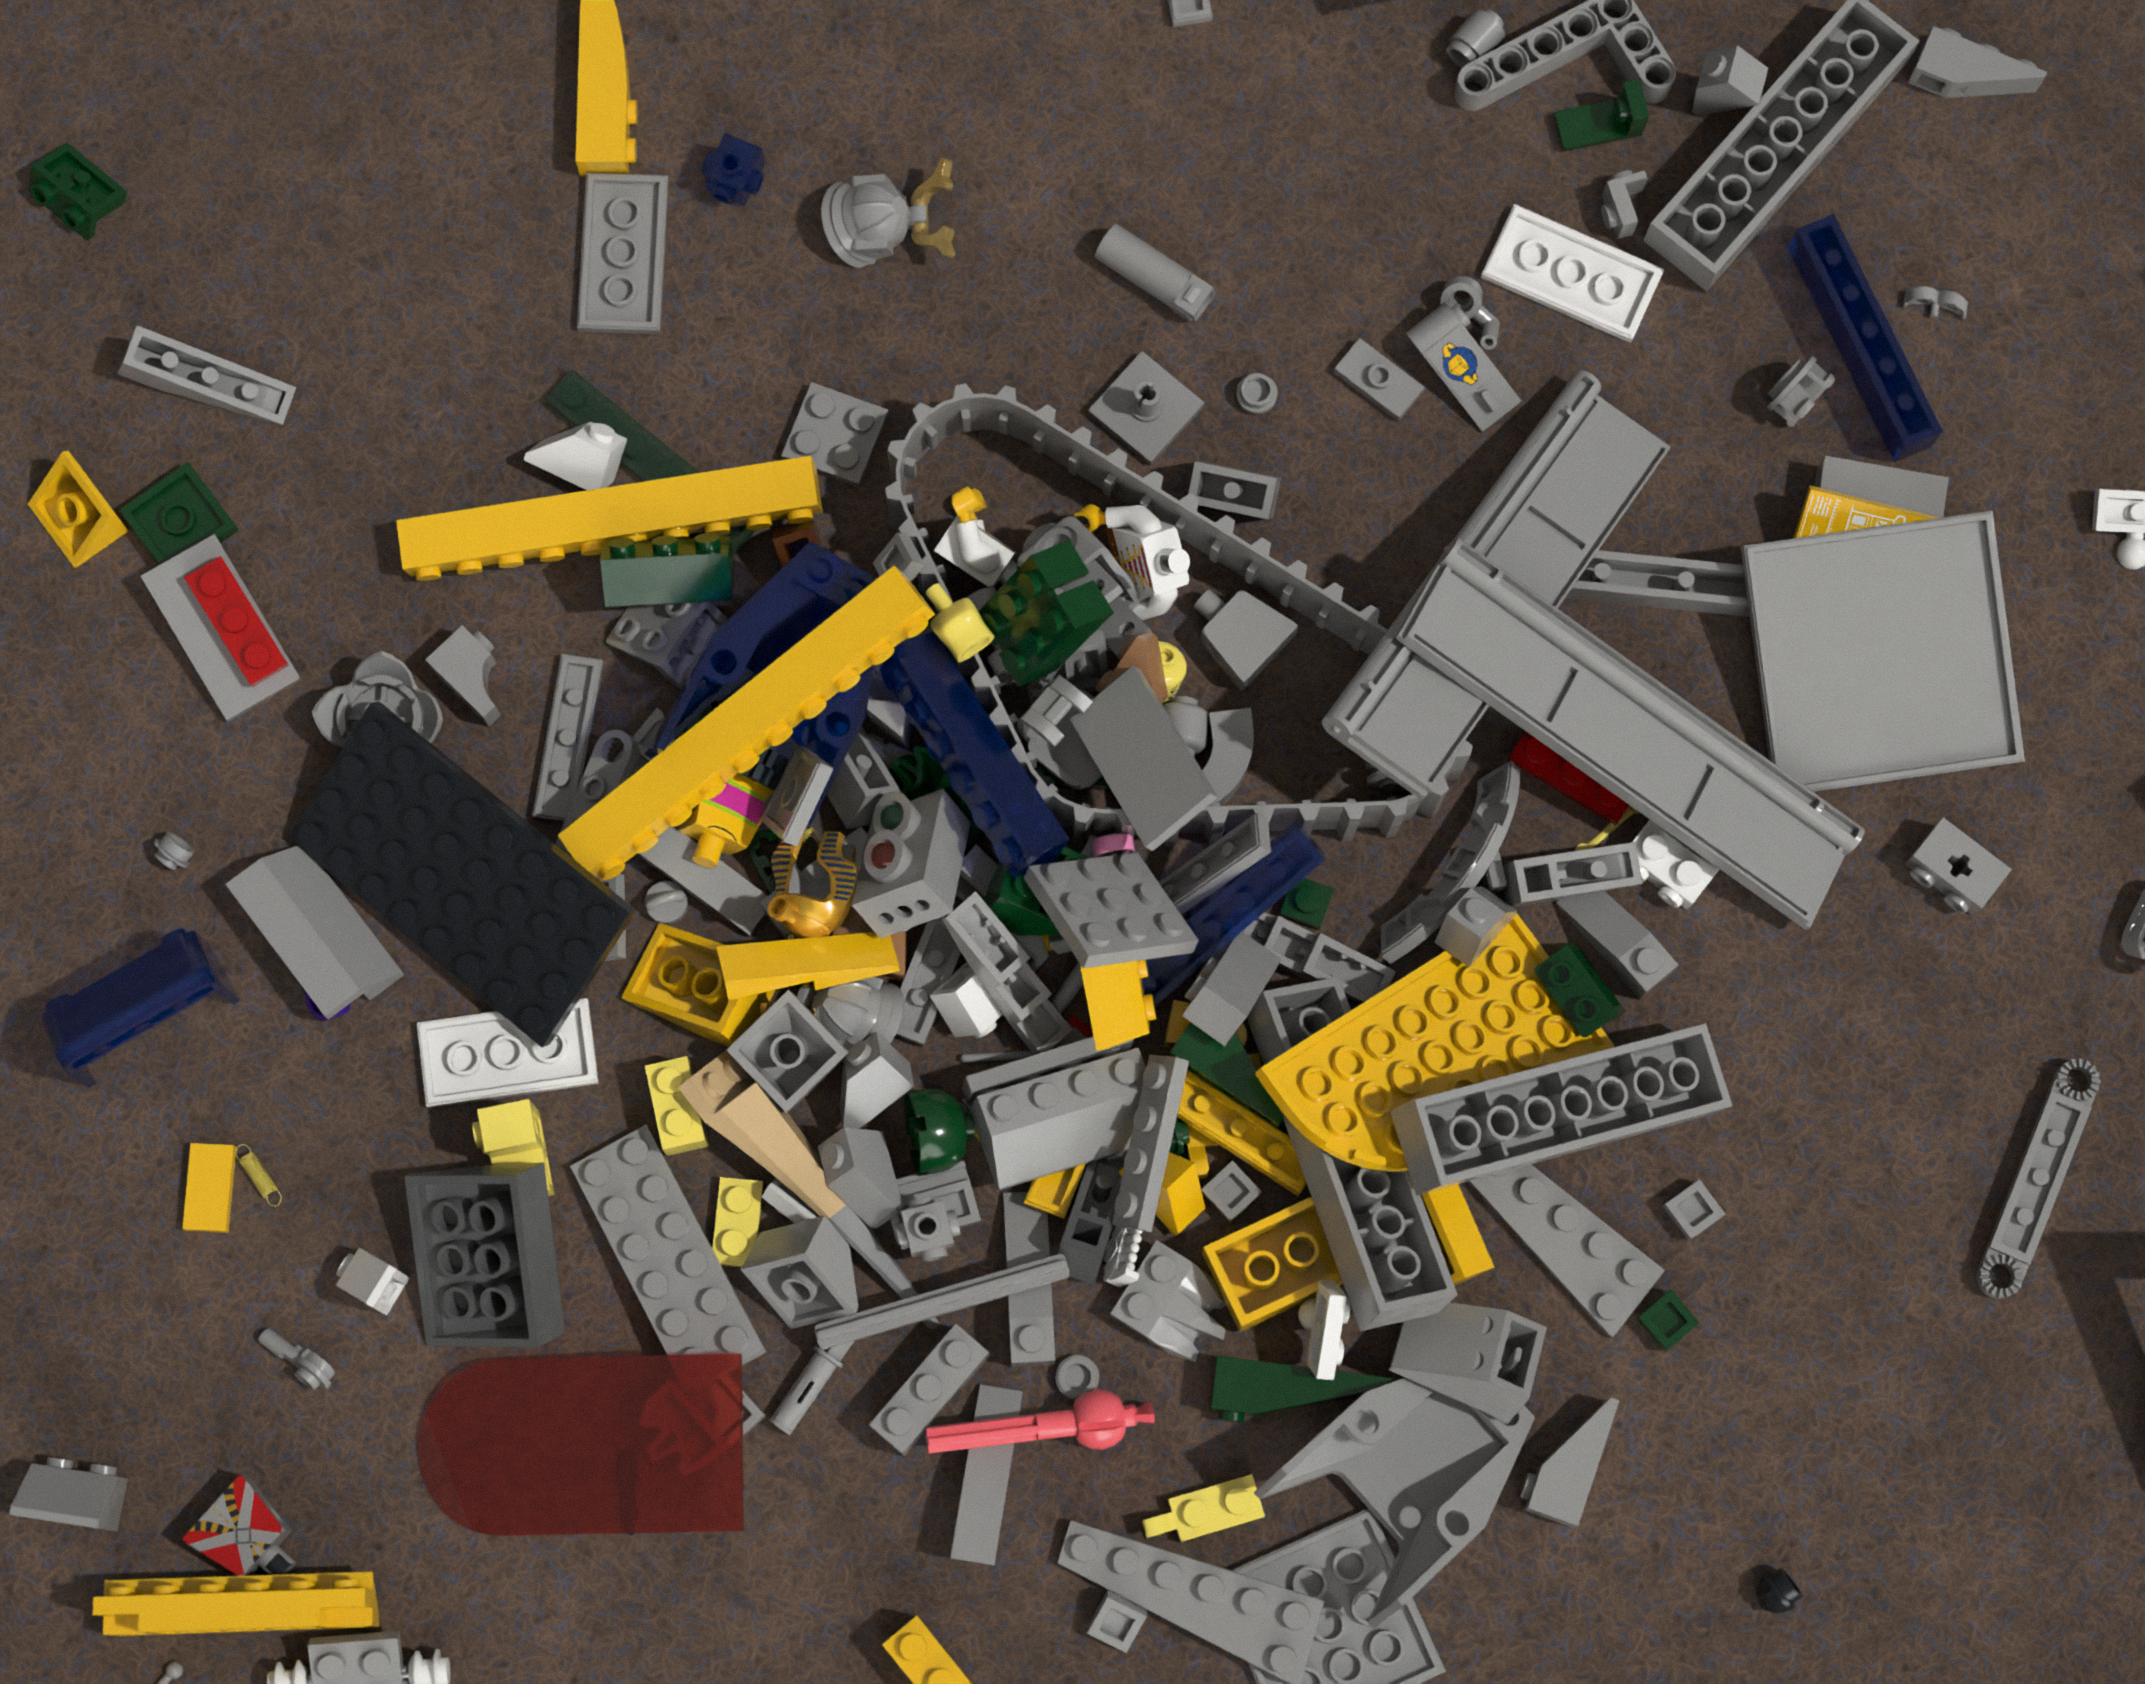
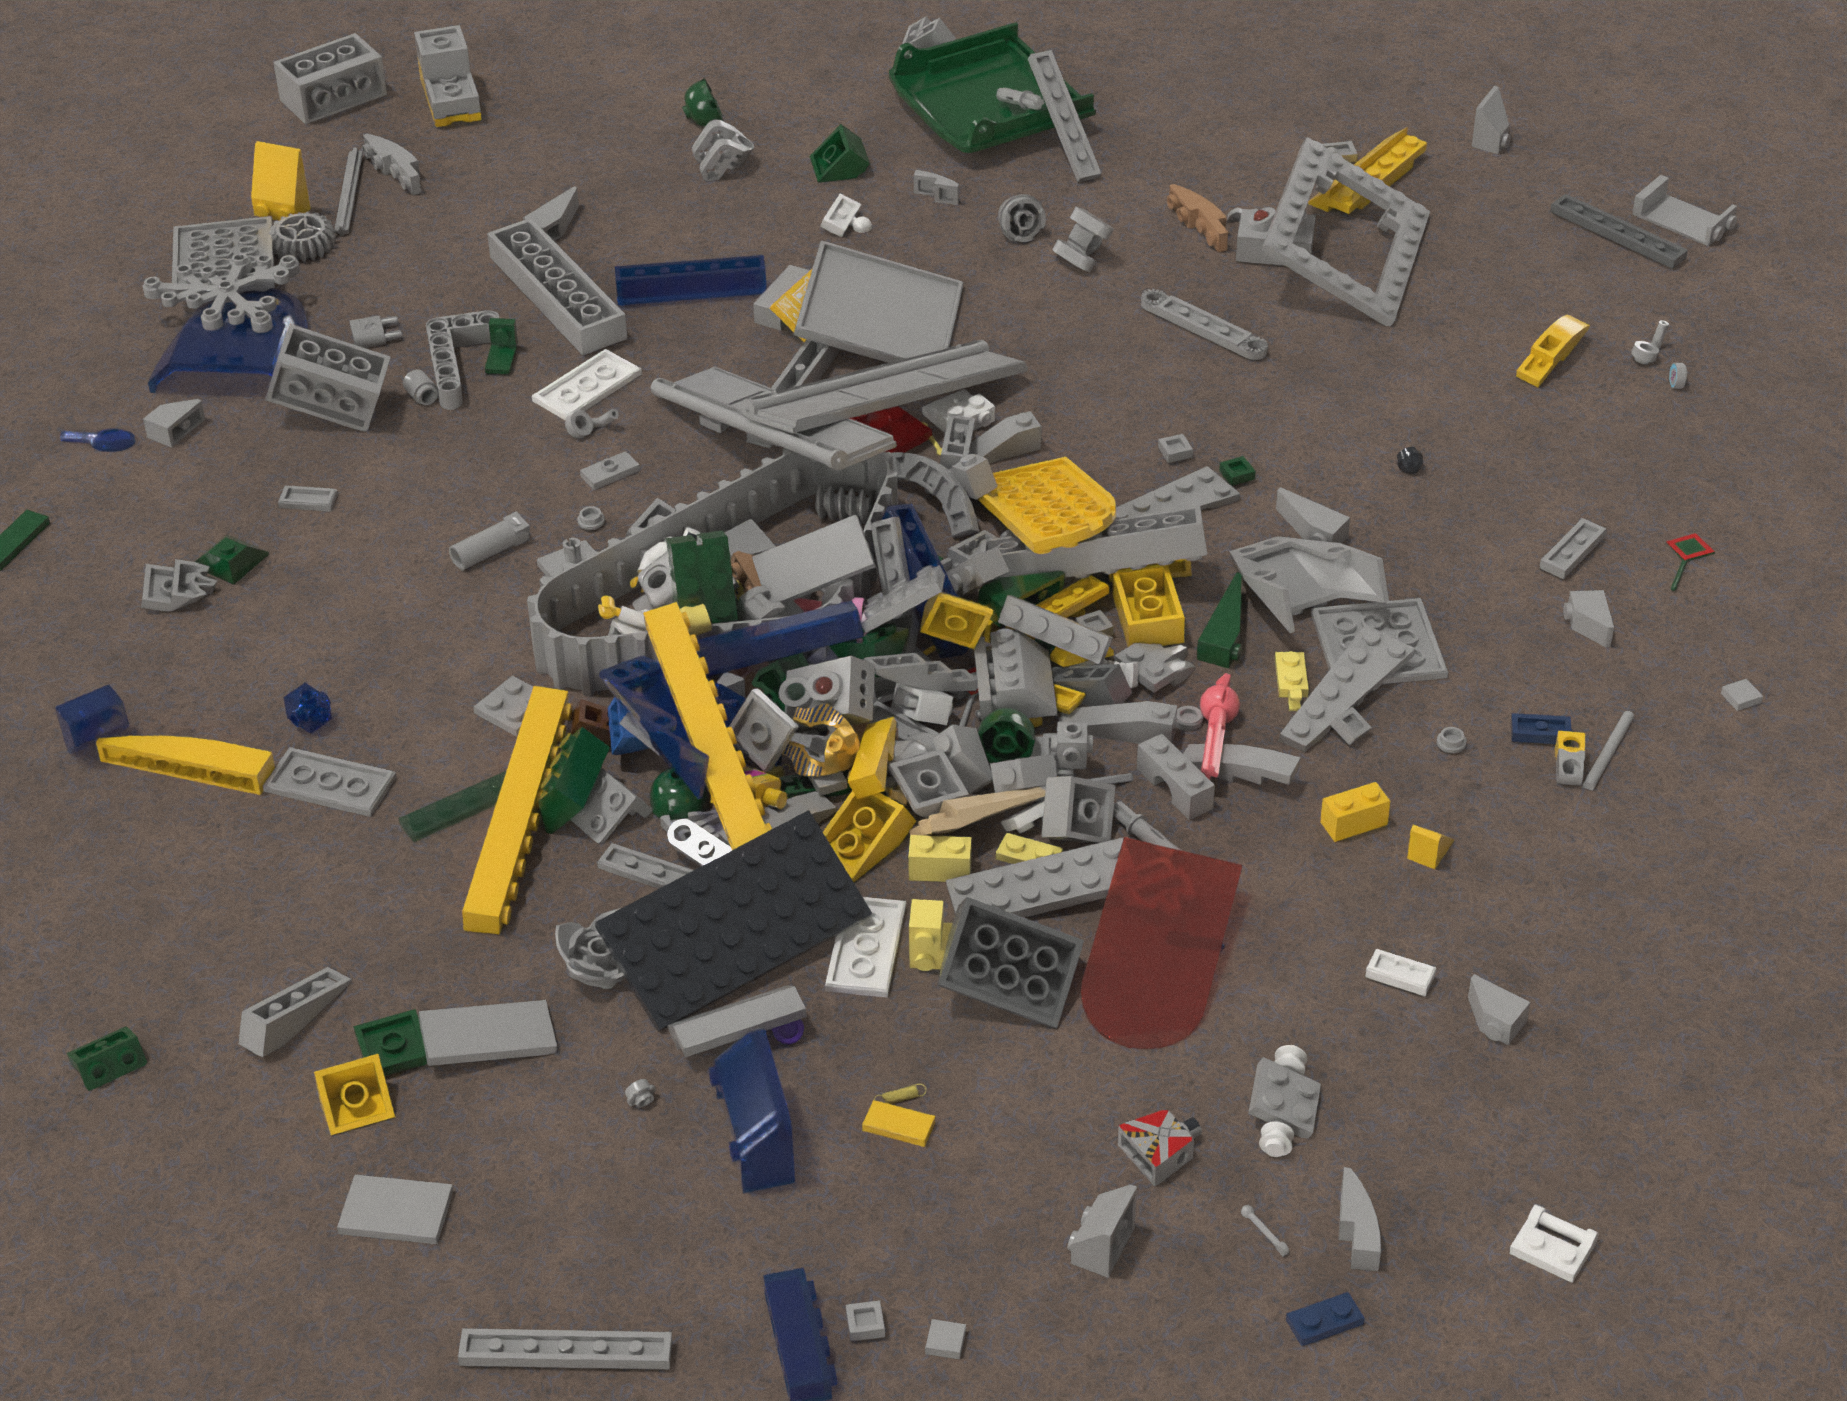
camera: 70 degrees left, 35 degrees down
(236, 621) = (489, 1014): red plate -> none
(238, 1603) = (1212, 1148): yellow slope -> none
(312, 1369) = (1052, 1086): light grey plate -> none
(371, 1280) = (1004, 1029): white slope -> none
(464, 667) = (585, 904): light grey arch -> none
(581, 455) = (463, 816): white slope -> none
(872, 216) = (384, 647): light grey helmet -> none
(902, 554) = (632, 643): light grey plate -> none
(942, 1301) = (1121, 750): light grey axle -> none
(1324, 1319) = (1198, 583): white plate -> none
(1463, 365) = (603, 431): light grey door -> none
(1472, 1356) = (1236, 533): light grey slope -> none
(1560, 1108) = (1102, 456): light grey brick -> none
(1579, 989) = (1026, 456): dark green bracket -> none
(1618, 208) = (557, 353): light grey bracket -> none
(1729, 81) = (510, 292): light grey slope -> none
(1798, 390) = (704, 308): light grey piece -> none
(1944, 299) = (683, 255): light grey piece -> none
(1979, 871) = (1014, 313): light grey brick -> none

